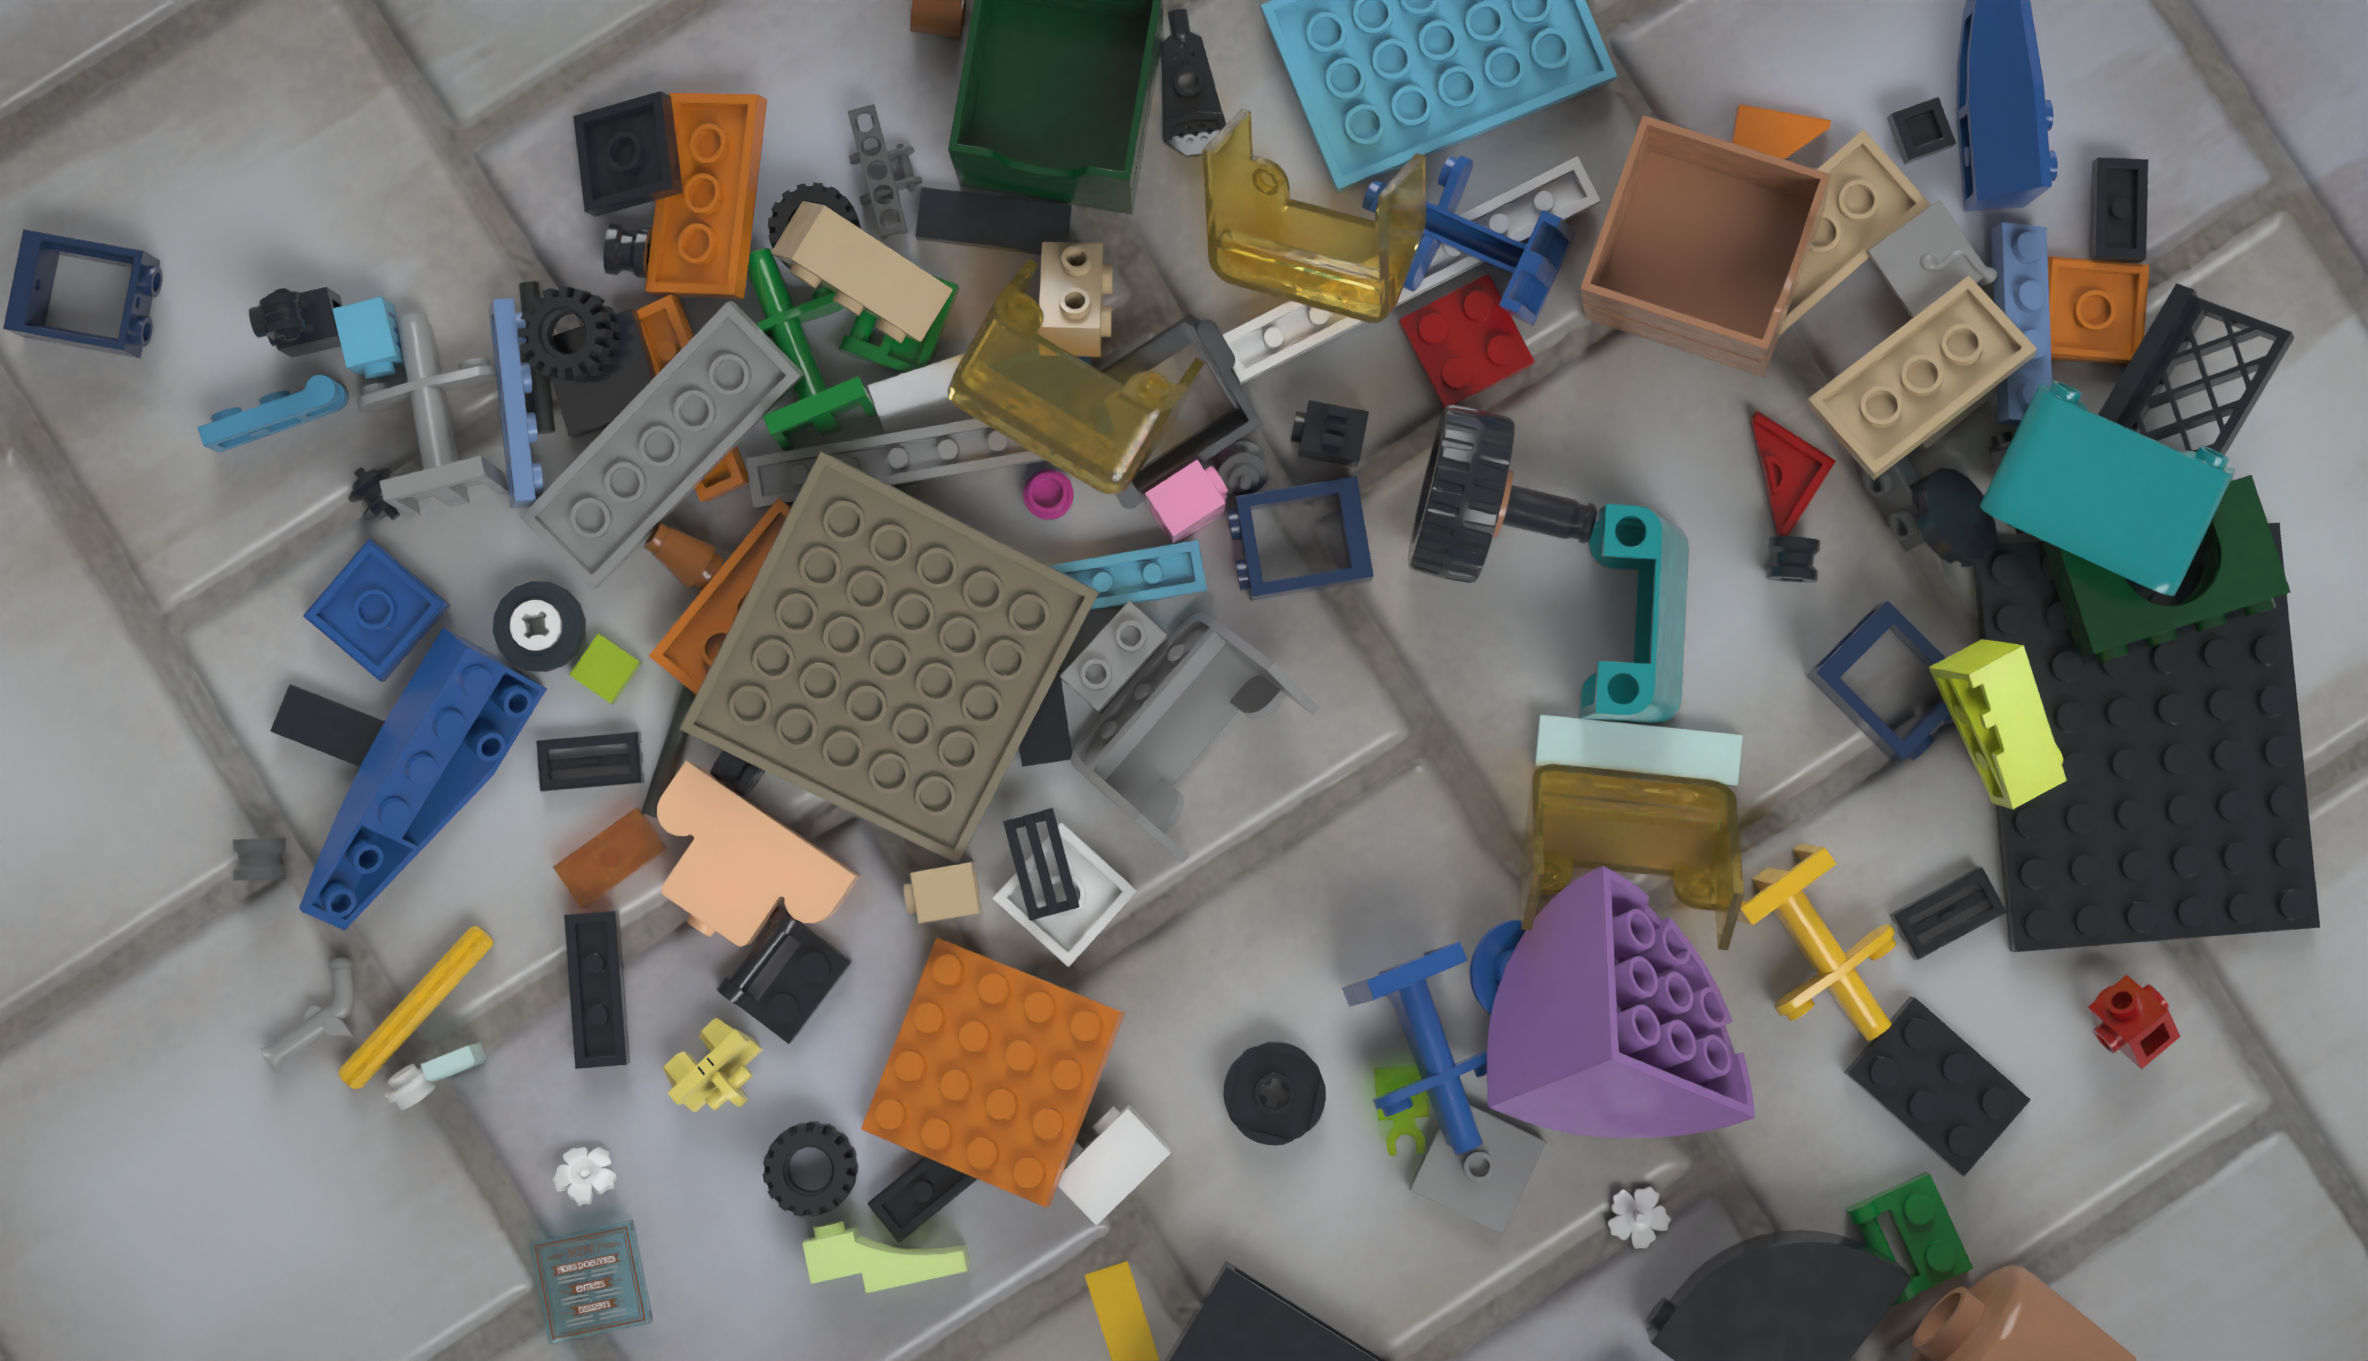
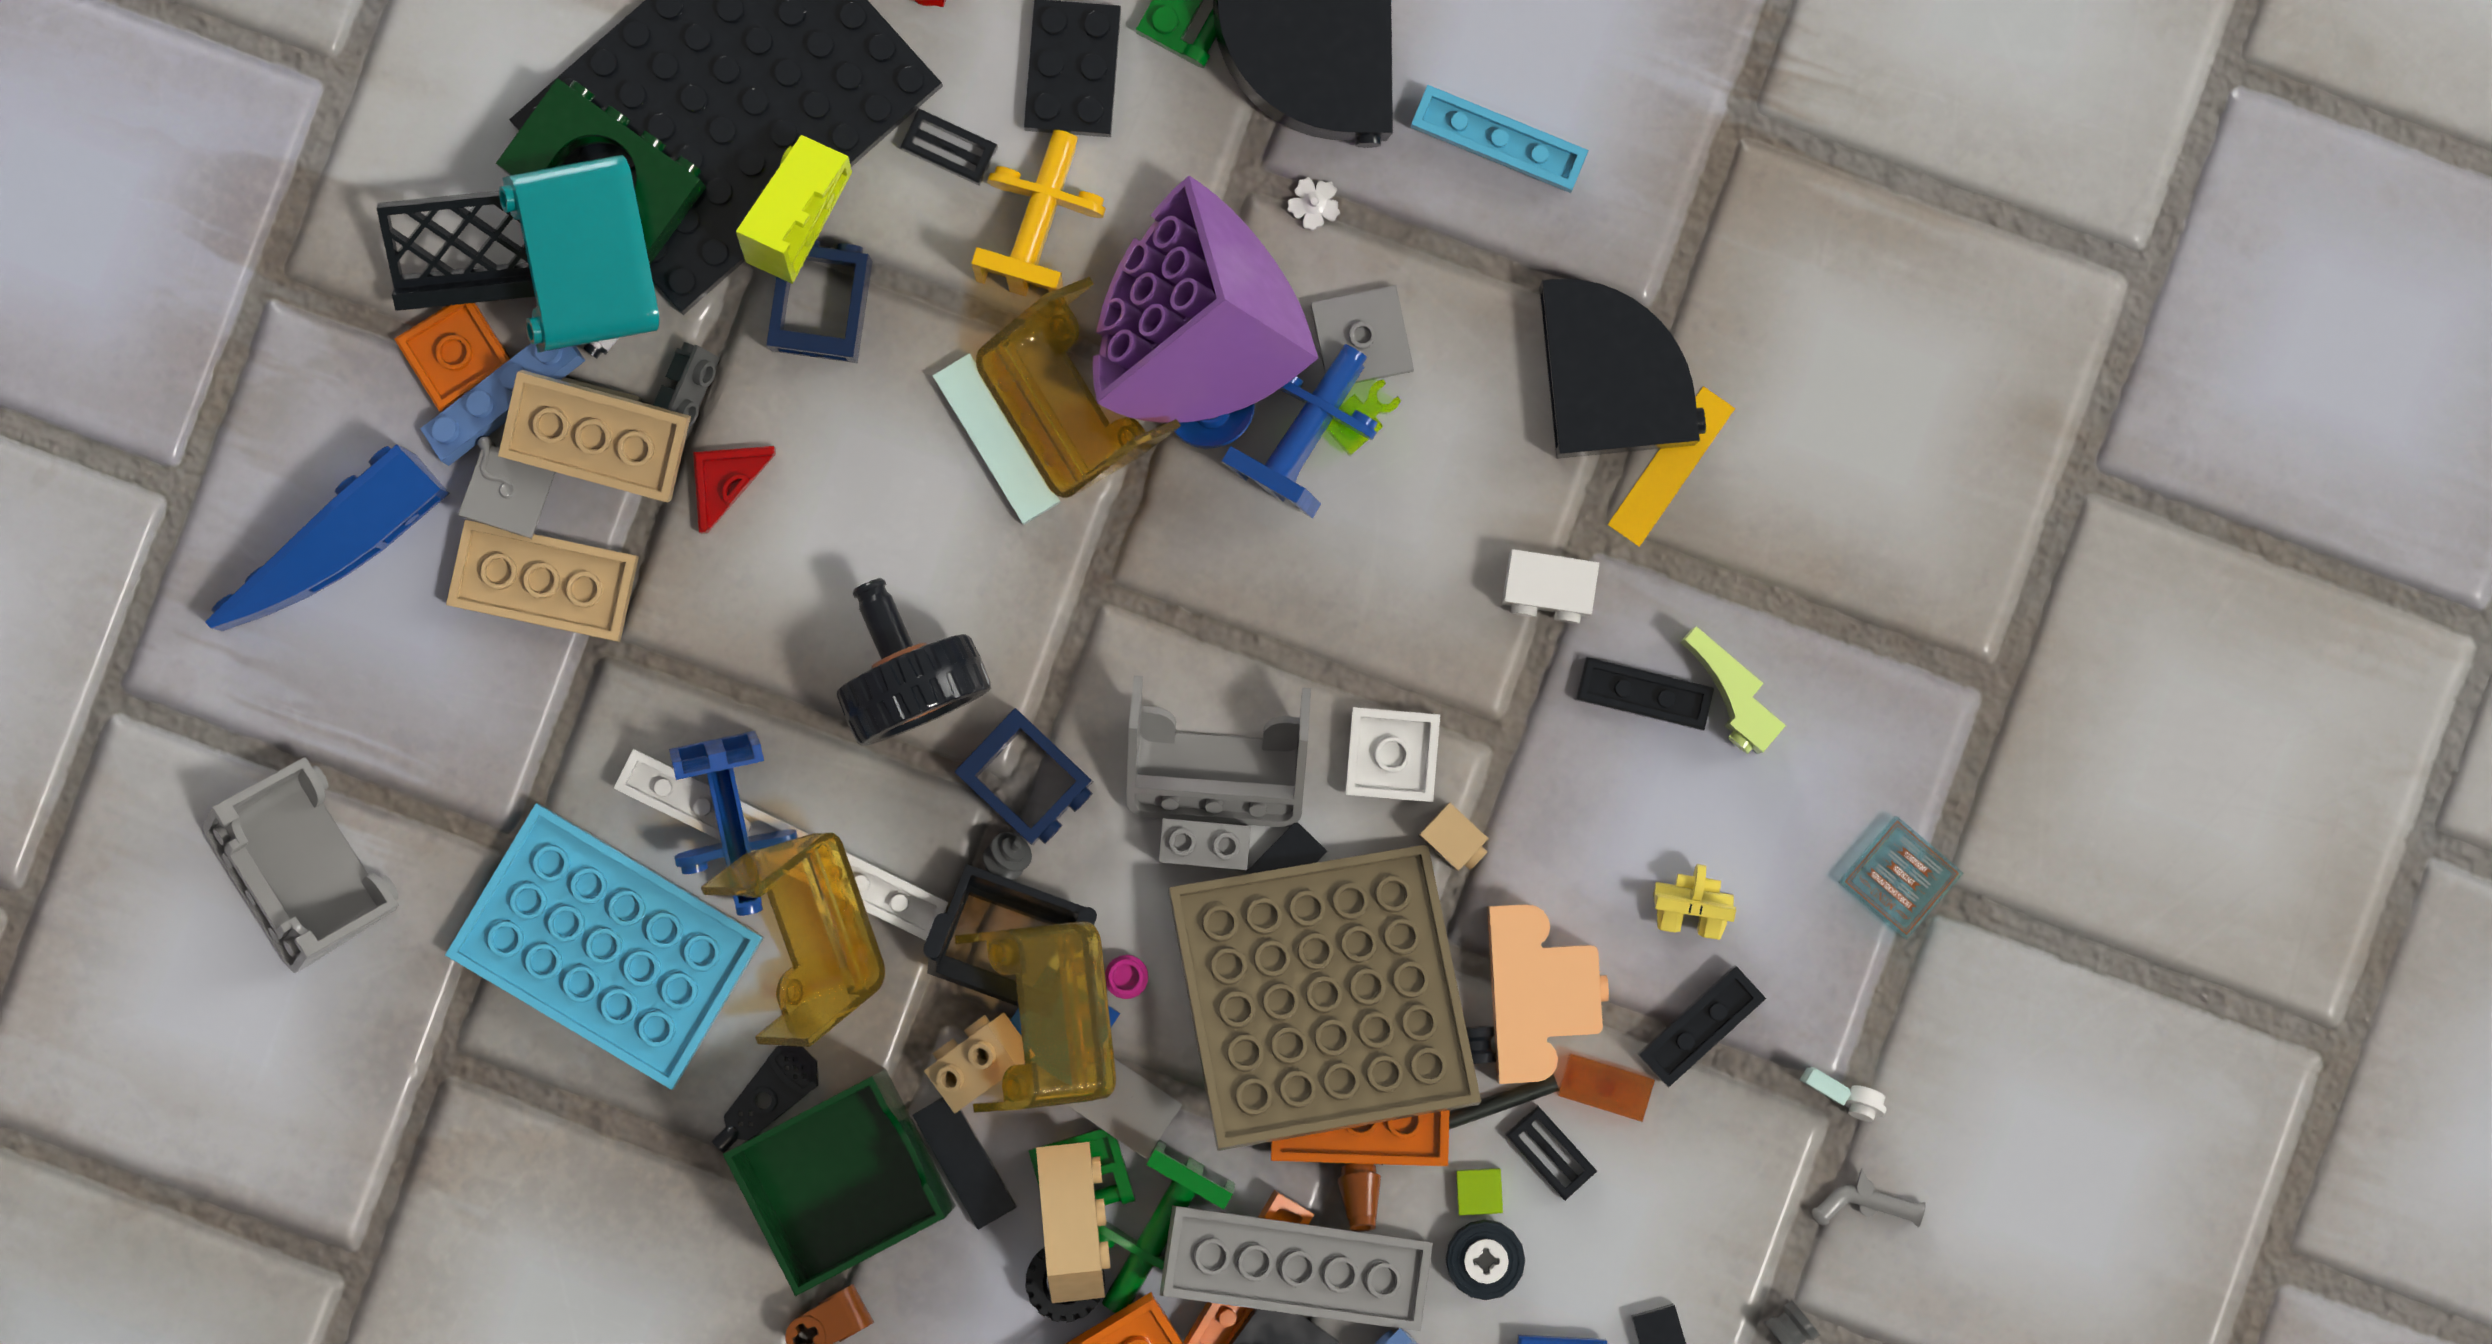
camera: 125 degrees left, 0 degrees up
(415, 1007) = (1809, 1142): yellow axle -> none
(419, 772) = (1646, 1263): blue wedge -> none
(584, 1173) = (1832, 938): white plant -> none
(778, 1175) = (1737, 780): black tyre -> none
(797, 987) = (1594, 890): black plate -> none
(882, 155) = (977, 1275): dark grey piece -> none
(892, 458) = (1188, 1106): light grey plate -> none
(993, 1072) = (1550, 712): orange plate -> none
(1022, 872) = (1407, 755): black tile -> none
(1141, 574) = (1133, 870): medium azure plate -> none
(1187, 501) = (1059, 874): bright pink brick -> none
(1289, 1118) = (1429, 488): black plate -> none
(1330, 433) = (936, 813): black brick -> none
(1466, 342) = (801, 768): red plate -> none
(1659, 551) = (851, 522): teal windscreen -> none
(1704, 245) = (617, 651): nougat piece -> none
(1775, 131) = (505, 668): orange tile -> none
(1793, 559) = (785, 430): black wheel -> none
(1921, 130) = (416, 564): black plate -> none
(1953, 517) = (676, 344): black tile -> none
(2119, 210) = (370, 387): black plate -> none

